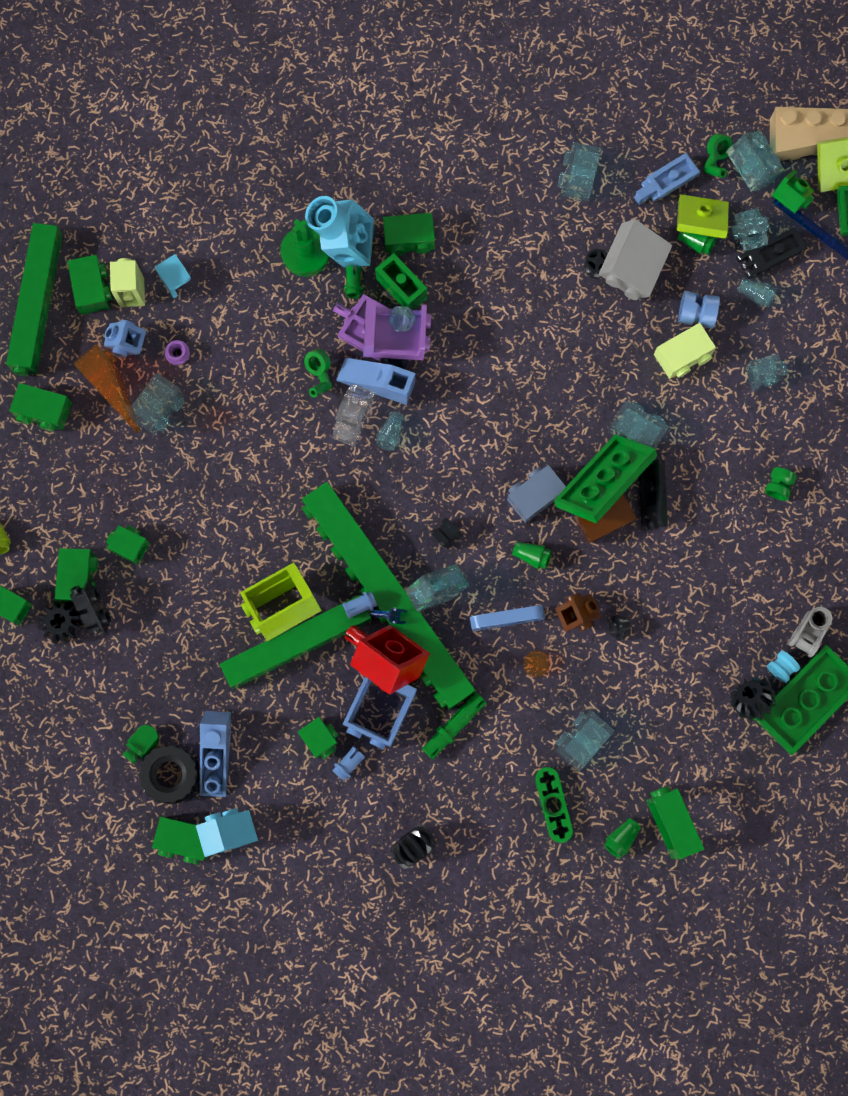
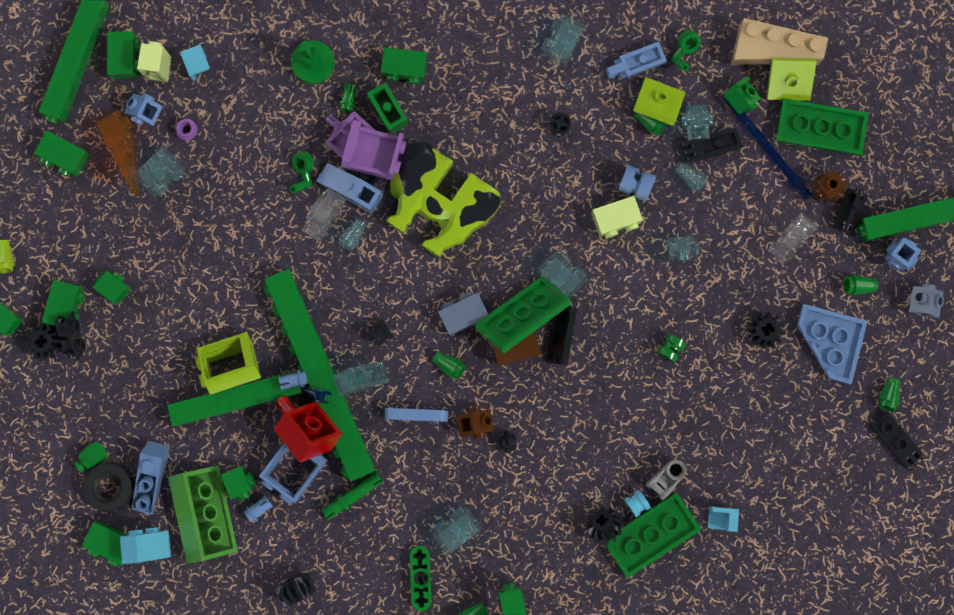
camera: 10 degrees right, 5 degrees up
(285, 783) = (202, 514): none -> bright green slope
(343, 230) = (345, 53): medium azure brick -> none
(402, 318) = (380, 141): clear light blue tile -> none
(454, 371) = (416, 186): none -> lime animal
(536, 664) = (432, 458): clear orange tile -> none
(635, 260) = (591, 129): light grey brick -> none
(755, 160) = (715, 61): clear light blue brick -> none

